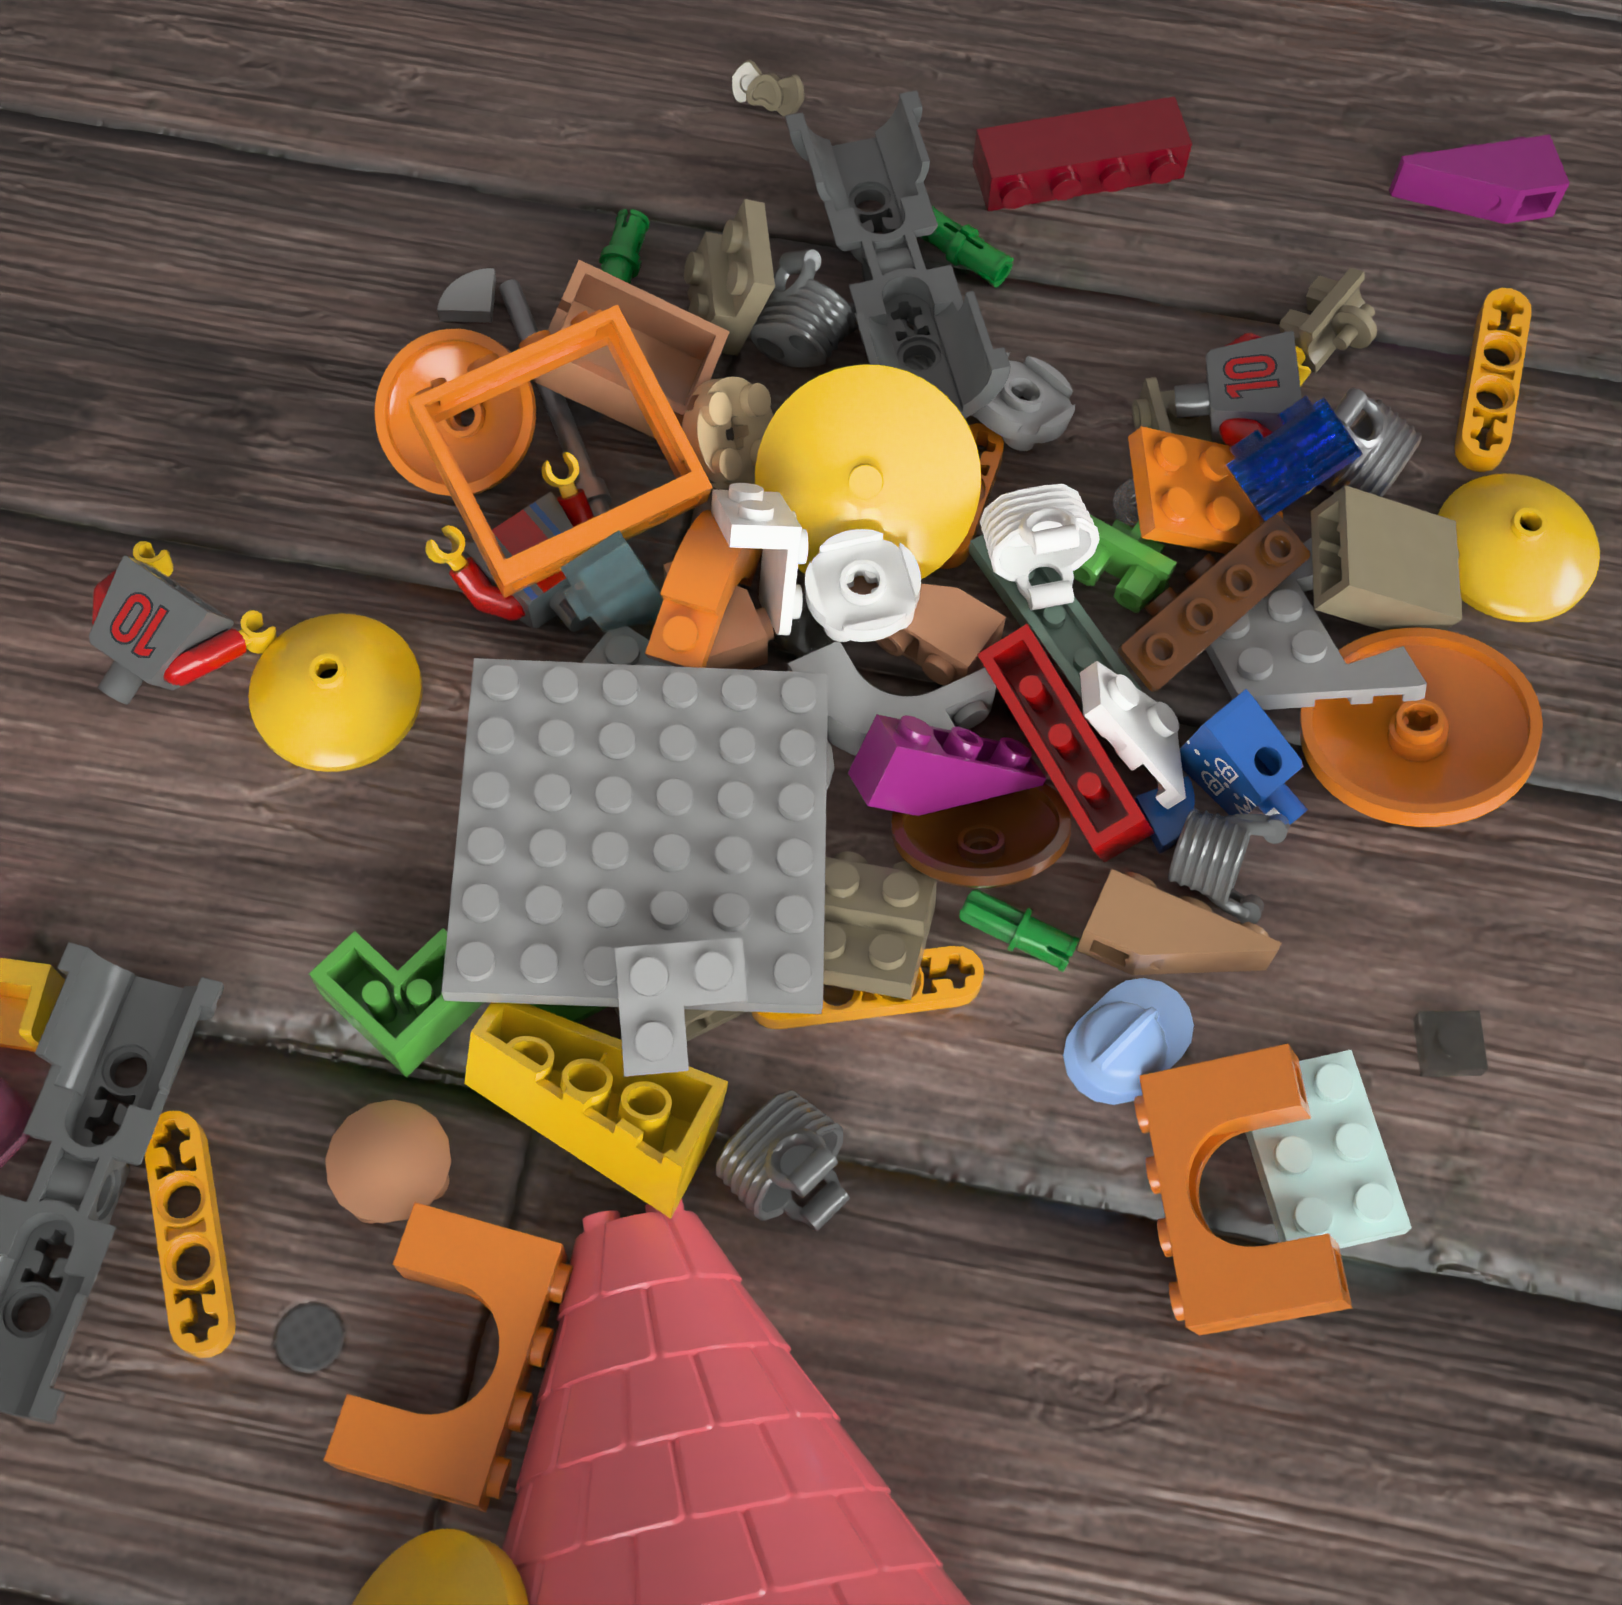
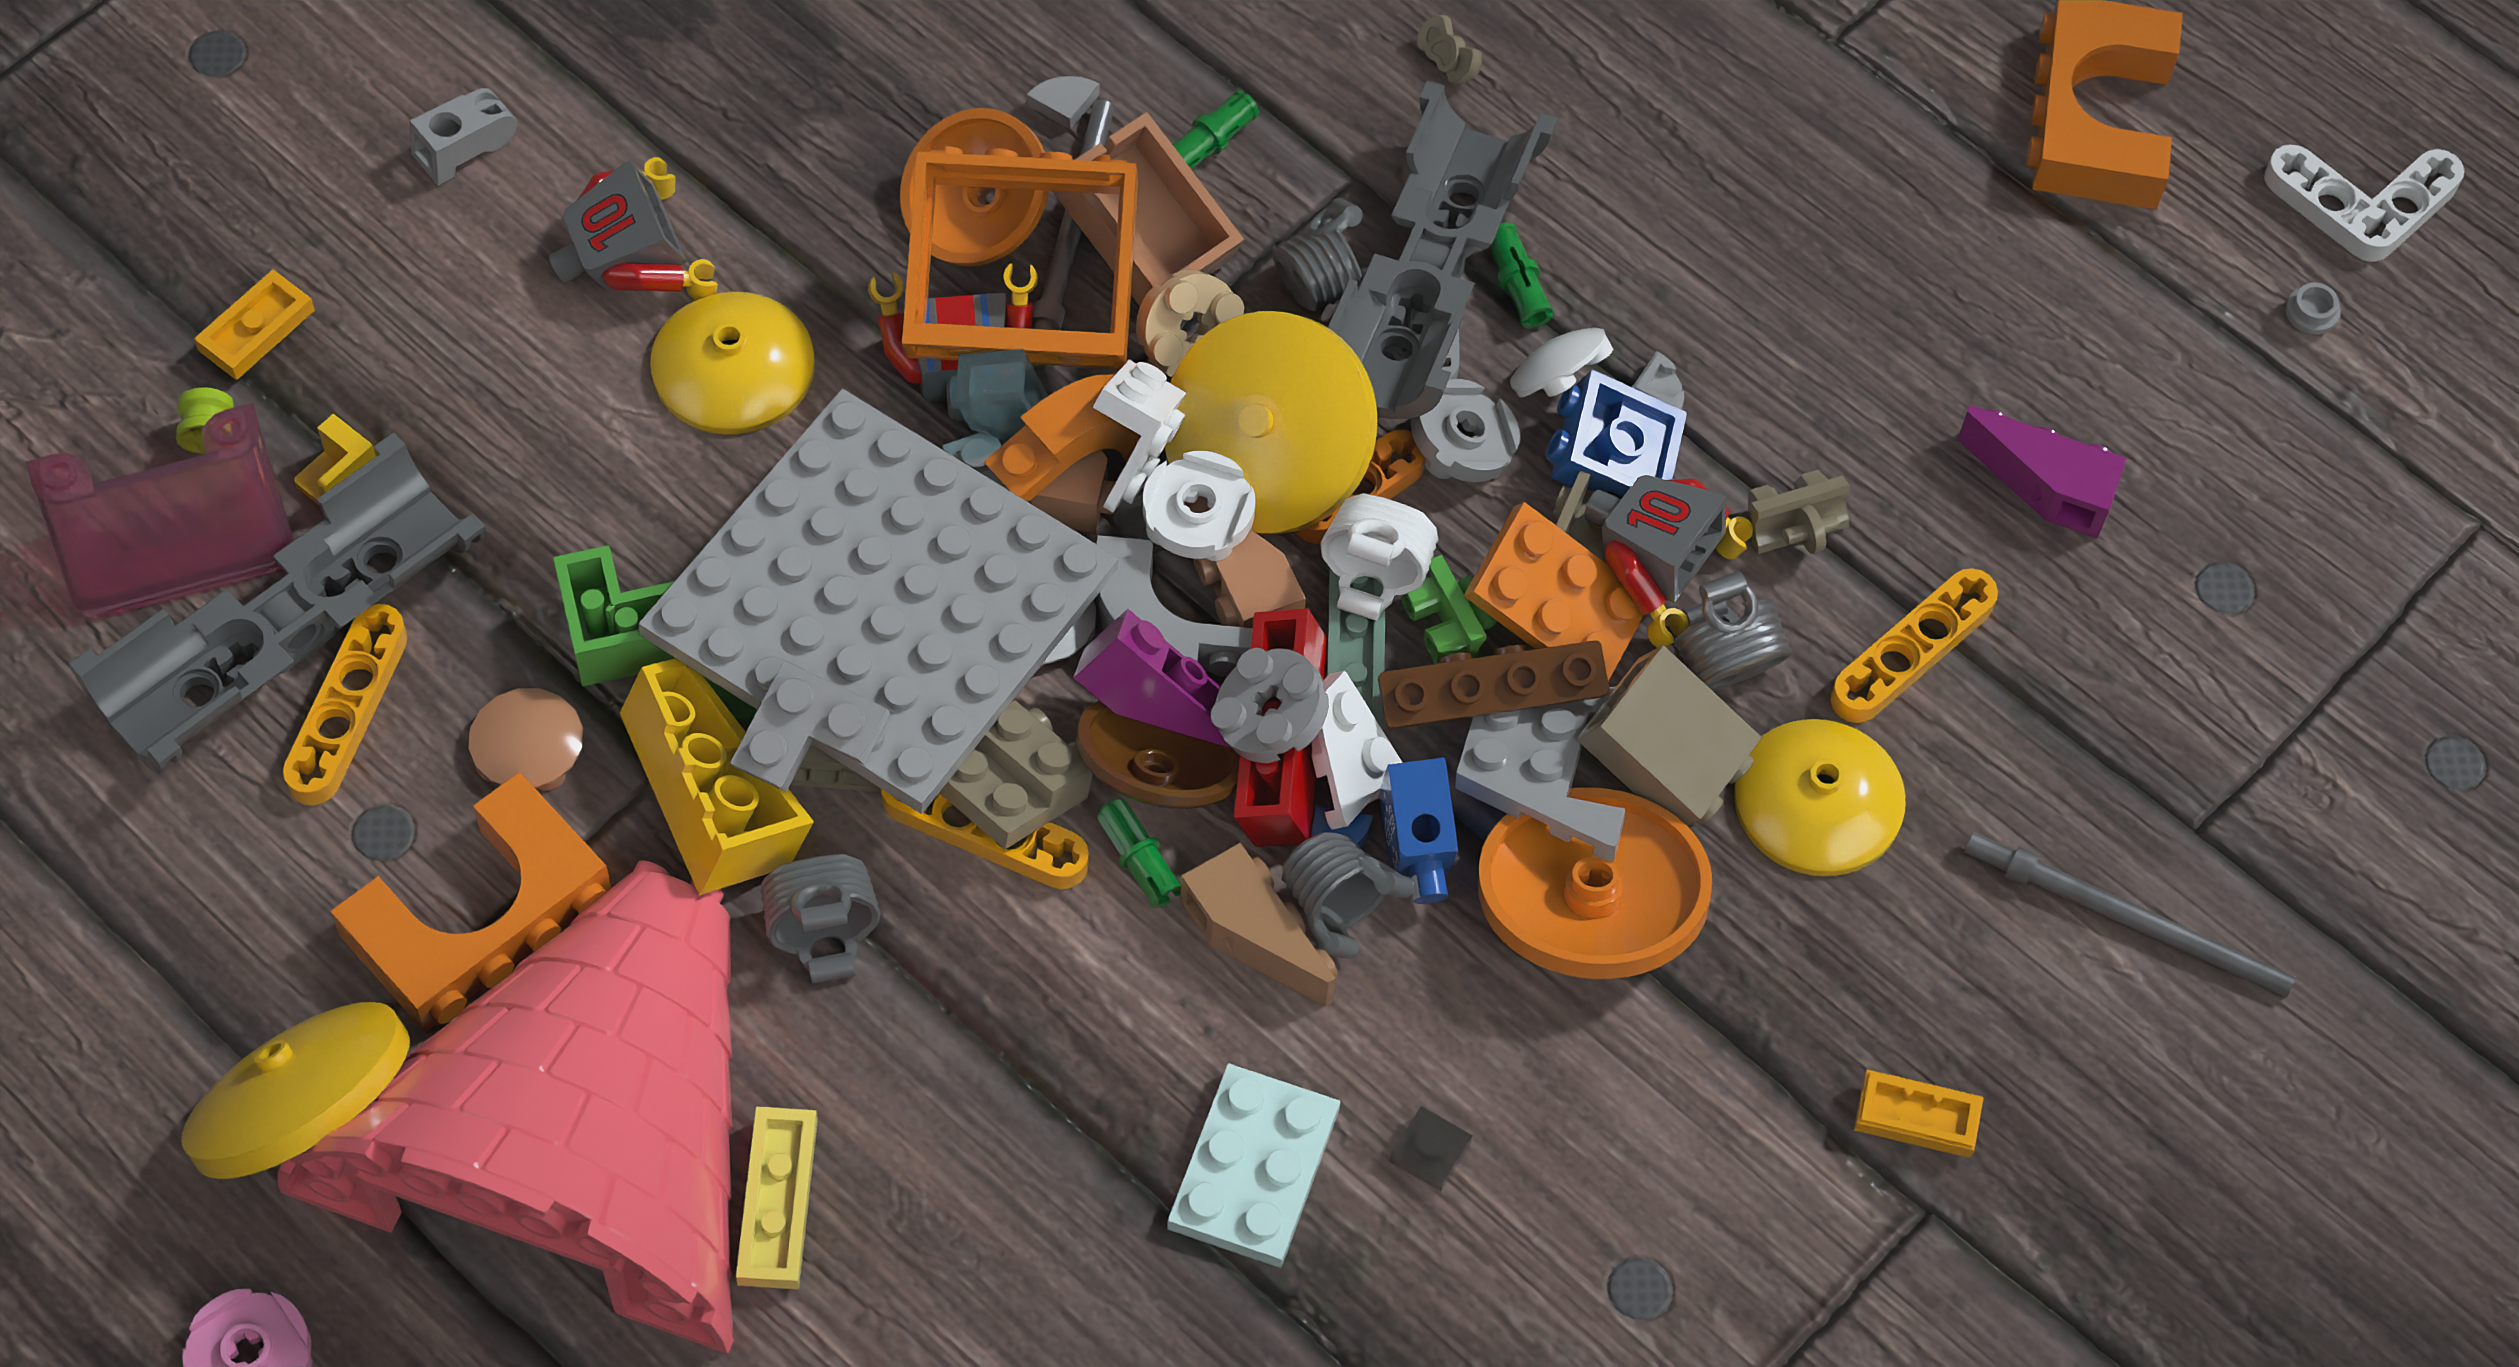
camera: 30 degrees right, 5 degrees down
(732, 274) = (1280, 196): dark tan plate -> none
(937, 1465) = (777, 1198): none -> light yellow plate
(1056, 297) = (1557, 360): none -> white dish
(1081, 153) = (1685, 251): dark red brick -> none
(1088, 748) = (1253, 682): none -> light grey plate
(1124, 1035) = (1167, 991): light blue piece -> none
(1139, 279) = (1661, 381): none -> light grey tile
(1143, 336) = (1614, 435): none -> blue plate
(1188, 1119) = (1157, 1070): orange arch -> none
(1293, 457) = (1634, 598): clear blue brick -> none

